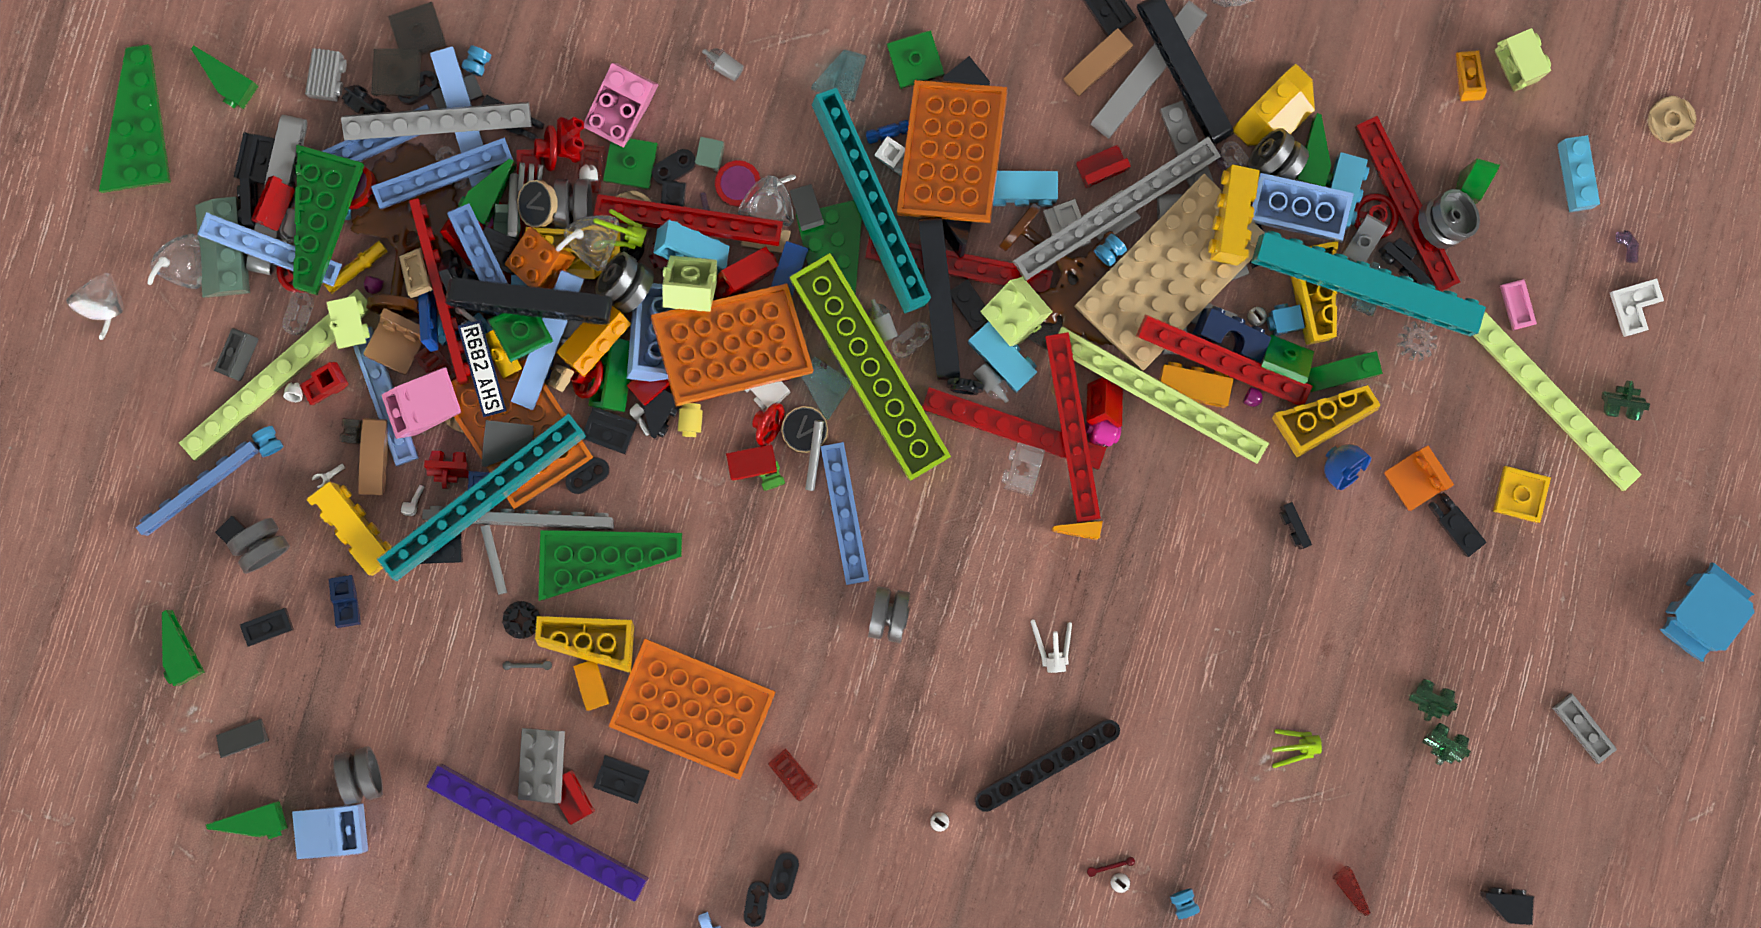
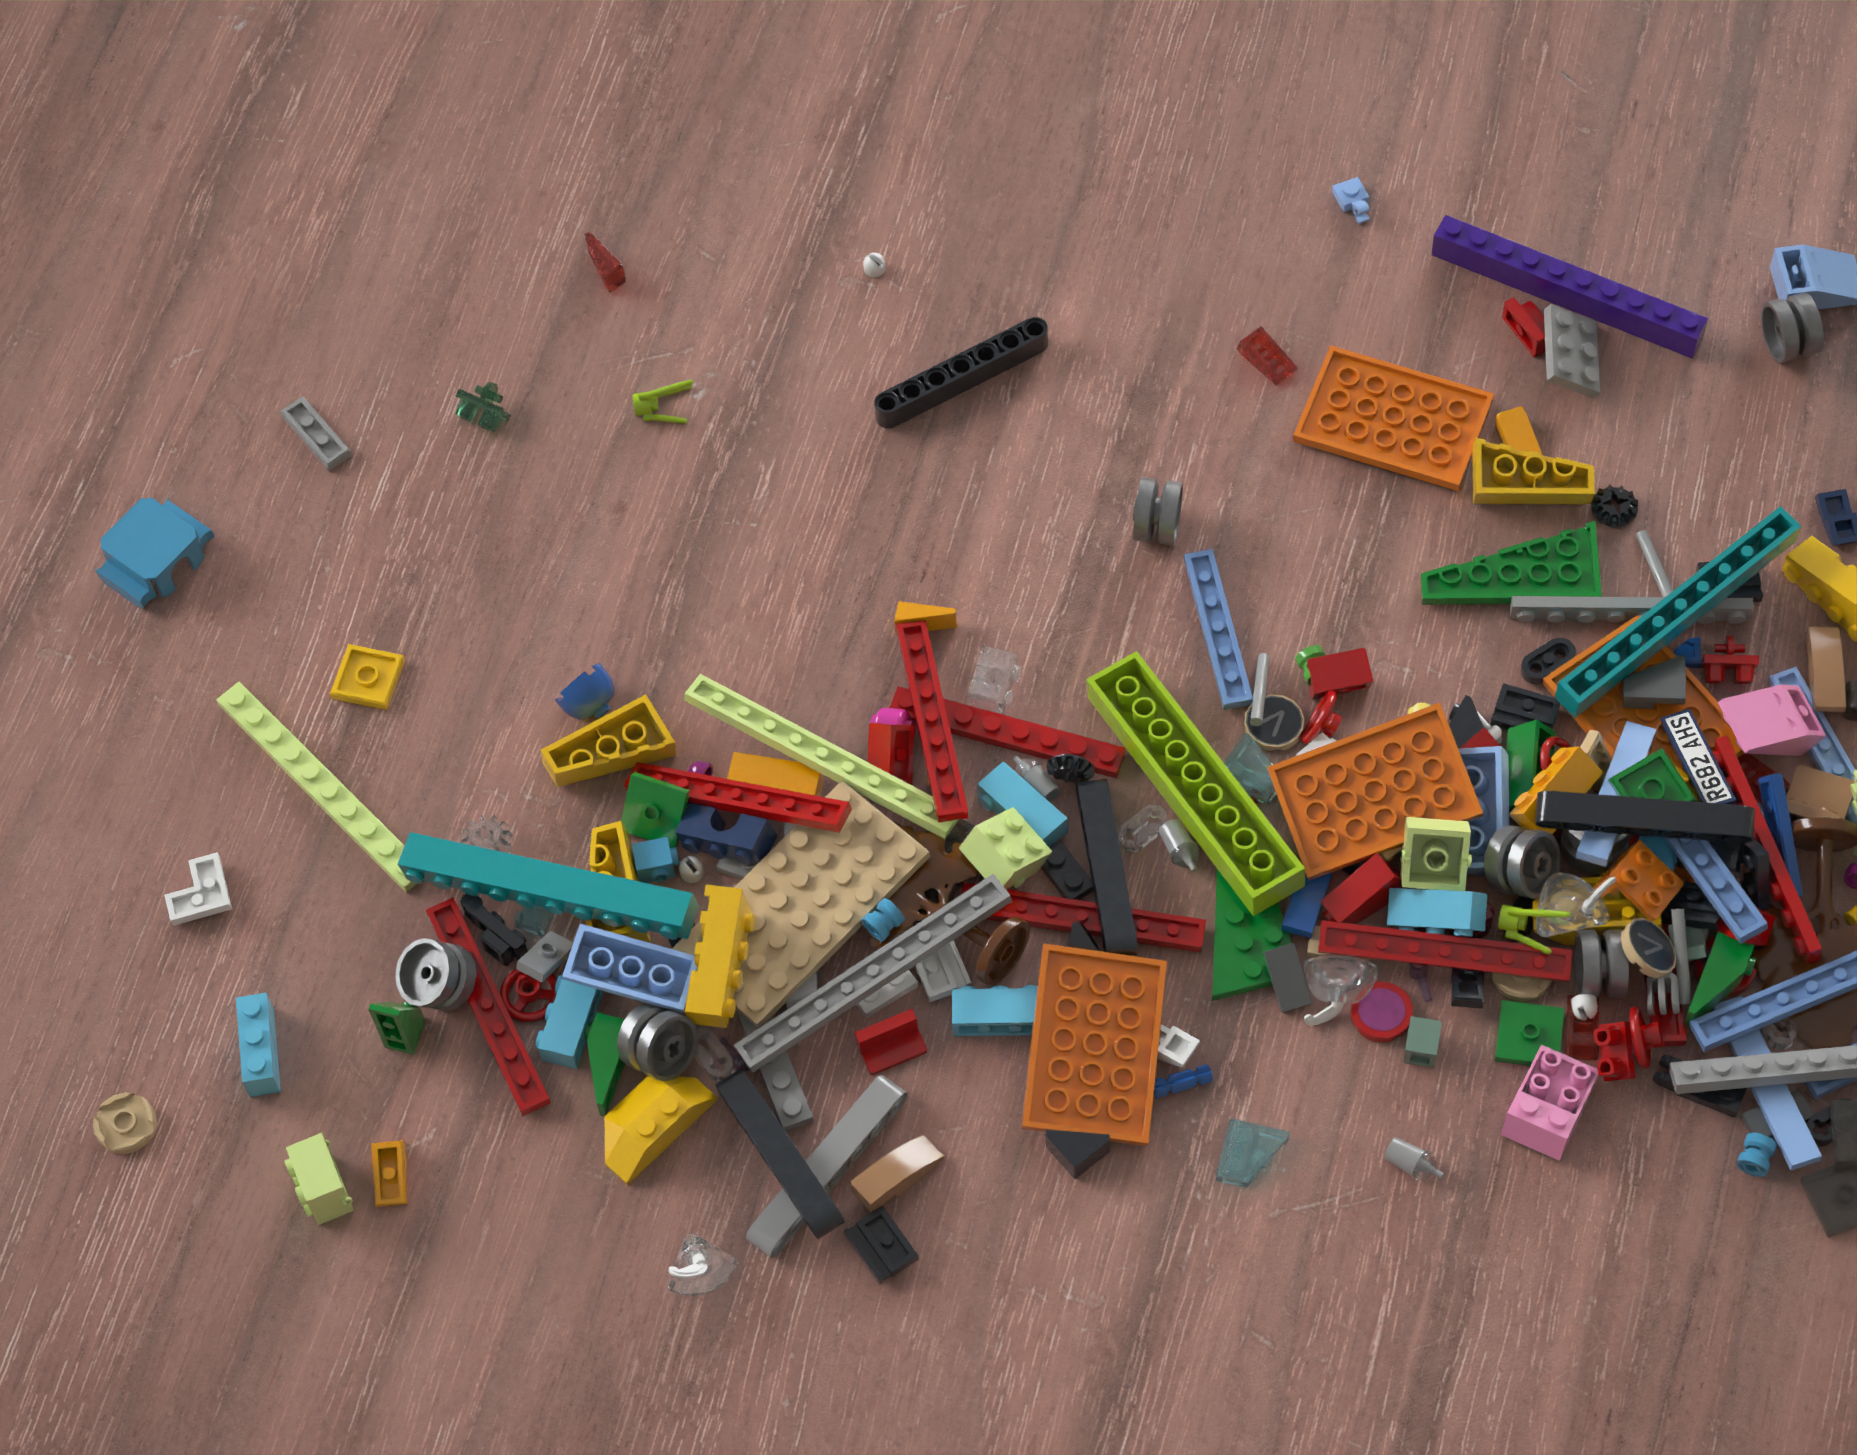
camera: 175 degrees left, 25 degrees down
(411, 508) = (1771, 620): white hand -> none
(415, 273) = (1801, 866): tan plate -> none
(547, 665) = (1626, 458): dark grey hinge -> none
(621, 779) = (1473, 344): black plate -> none
(675, 168) = (1471, 1029): black plate -> none
(750, 903) = (1297, 230): black beam -> none
(783, 875) = (1270, 258): black plate -> none
(870, 200) = (1203, 980): teal brick -> none
(915, 59) = (1148, 1175): green plate -> none
(942, 817) = (1085, 318): white hinge -> none
(1055, 661) = (951, 481): white plant -> none
(1091, 871) = (907, 276): dark red hinge -> none
(1184, 903) = (799, 243): dark azure wheel -> none
(1290, 517) = (649, 621): black plate -> none
(1345, 371) = (579, 803): green slope -> none
(1418, 478) = (496, 686): orange bracket -> none
(1431, 703) = (482, 449): clear green hips -> none
(1458, 526) = (449, 638): black hinge -> none
(1510, 907) = (421, 253): black slope -> none
(1518, 304) = (351, 892): bright pink tile -> none
(1630, 243) = (198, 966): clear purple arm -> none
(1635, 405) = (227, 779): clear green hips -> none

